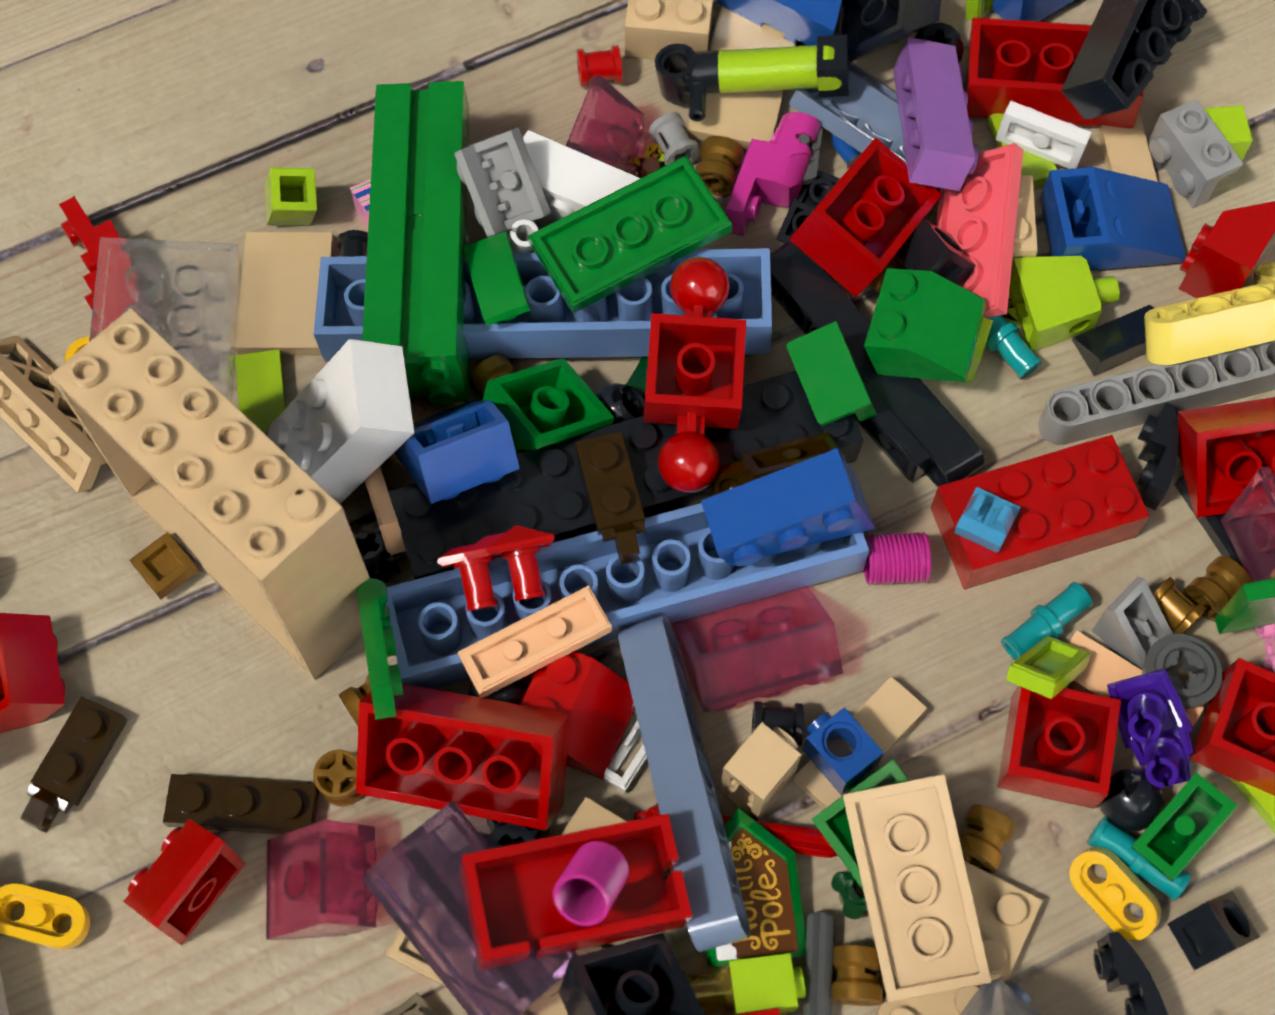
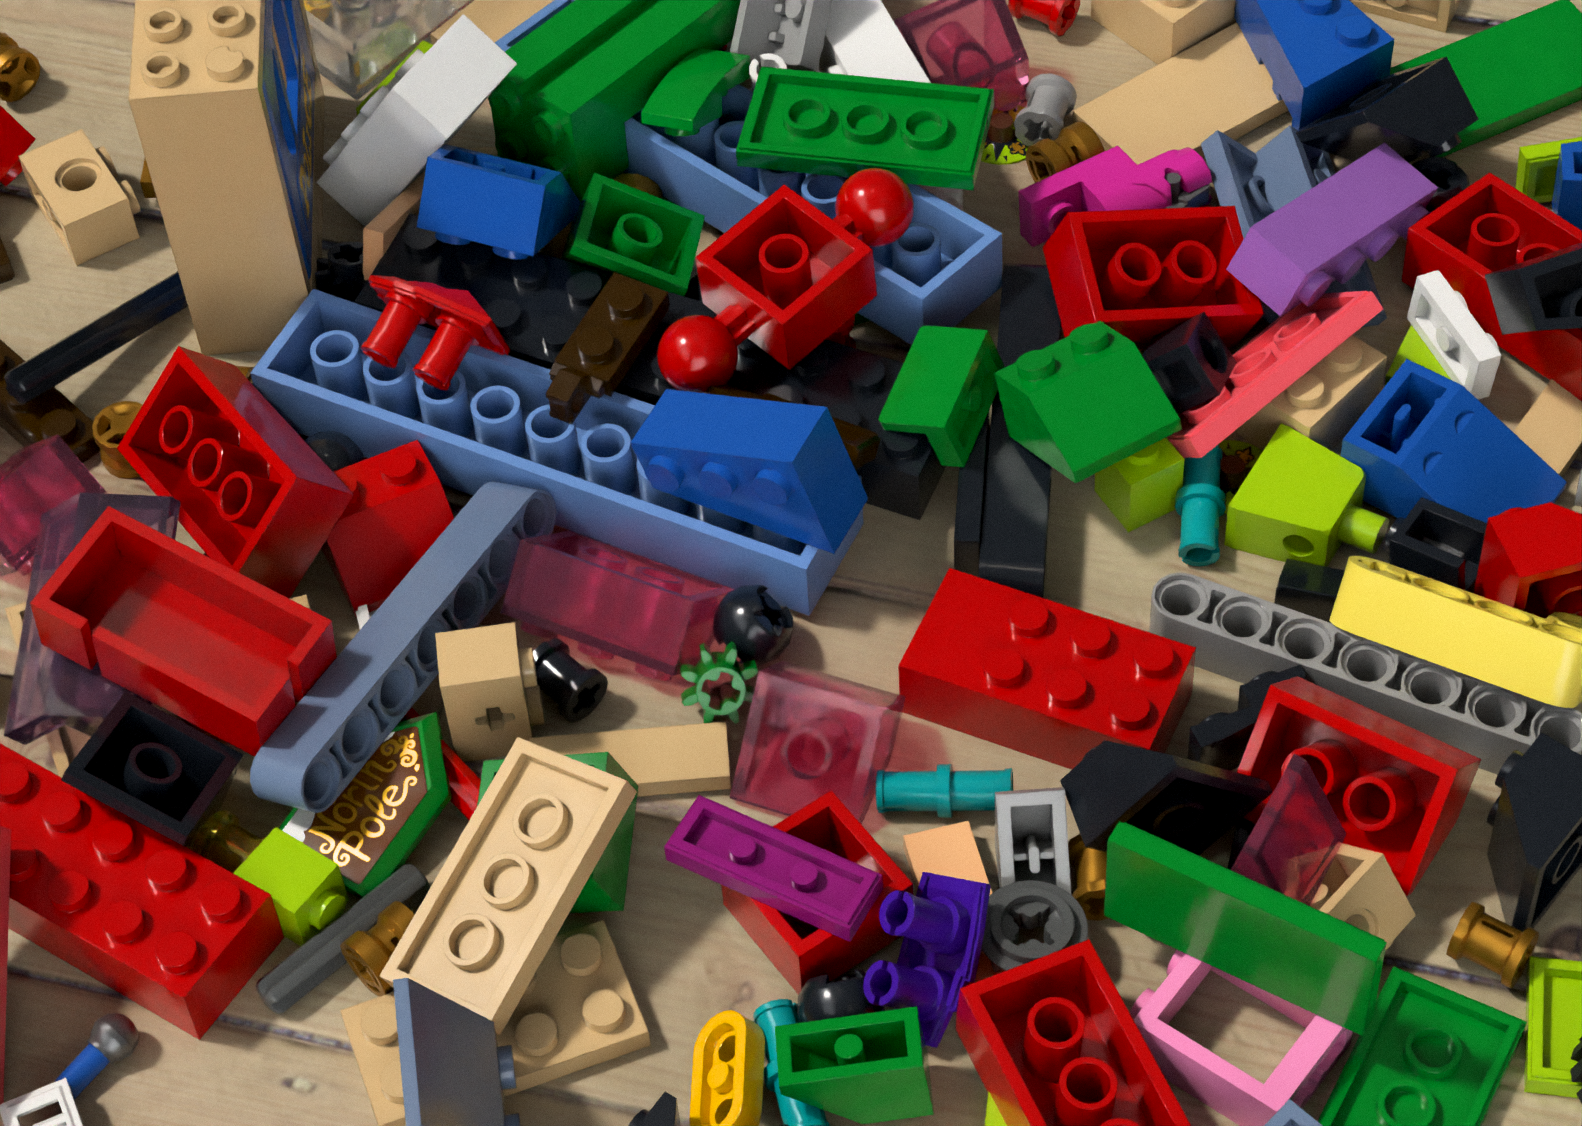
camera: 45 degrees right, 15 degrees down
(142, 651) = (81, 196): none -> tan brick
(251, 722) = (96, 340): none -> black axle
(379, 644) = (237, 309): green plate -> none
(534, 641) = (396, 420): light nougat tile -> none
(579, 899) = (191, 613): dark pink piece -> none
(692, 74) = (1263, 120): piece -> none
(841, 771) = (587, 708): blue brick -> none
(852, 604) = (753, 623): none -> black piece
(870, 656) = (710, 668): none -> green gear
(898, 558) = (848, 619): dark pink piece -> none
(957, 649) = (814, 737): none -> clear pink slope
(985, 836) = (644, 930): pearl gold wheel -> none
(987, 520) = (958, 622): dark azure tile -> none
(1047, 753) = (774, 867): none -> magenta tile
(1048, 667) = (876, 804): lime tile -> none
(1152, 276) = (1437, 544): none -> black window
(1180, 542) = (1159, 794): none -> black slope

